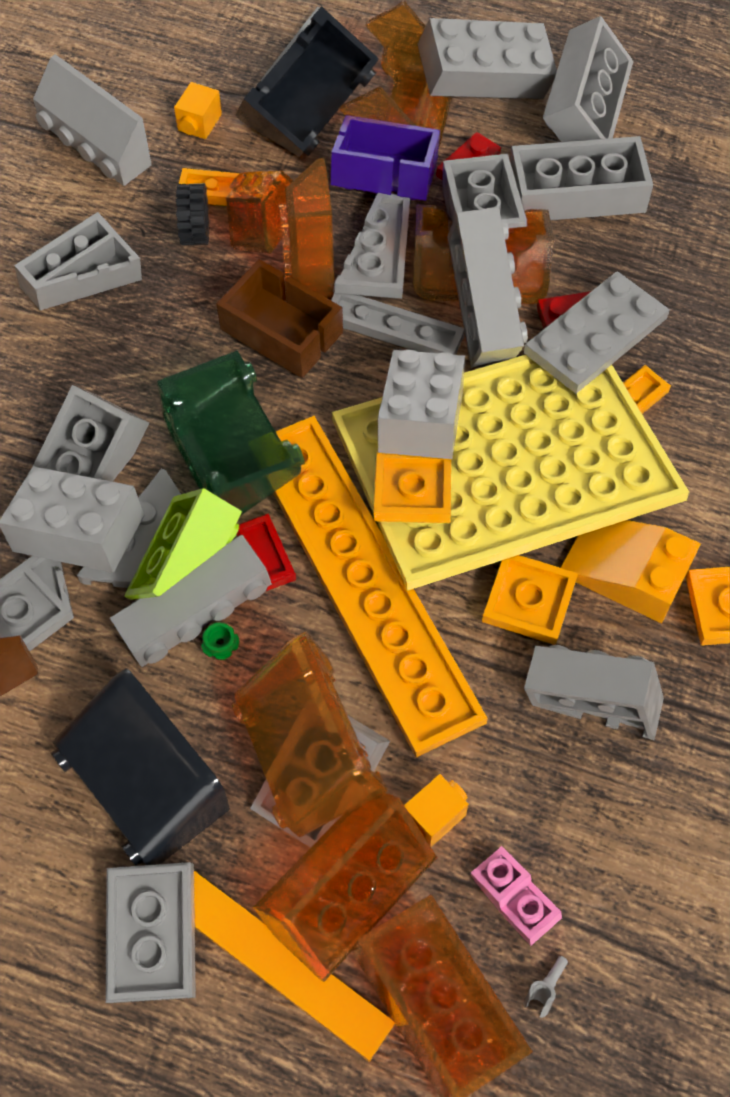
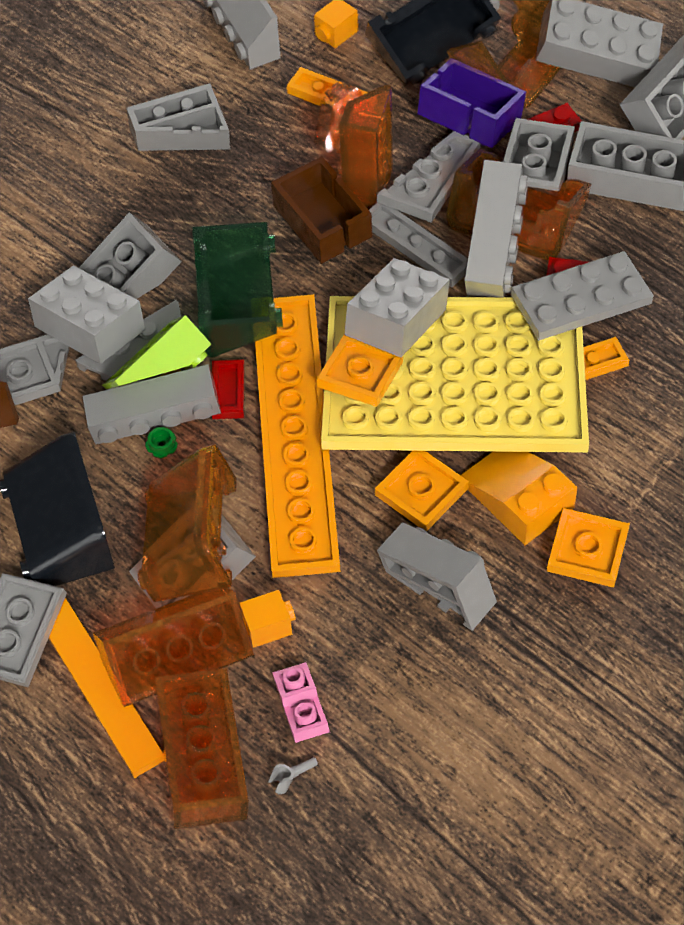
camera: 25 degrees right, 5 degrees down
(192, 214) = (289, 106): black tyre -> none

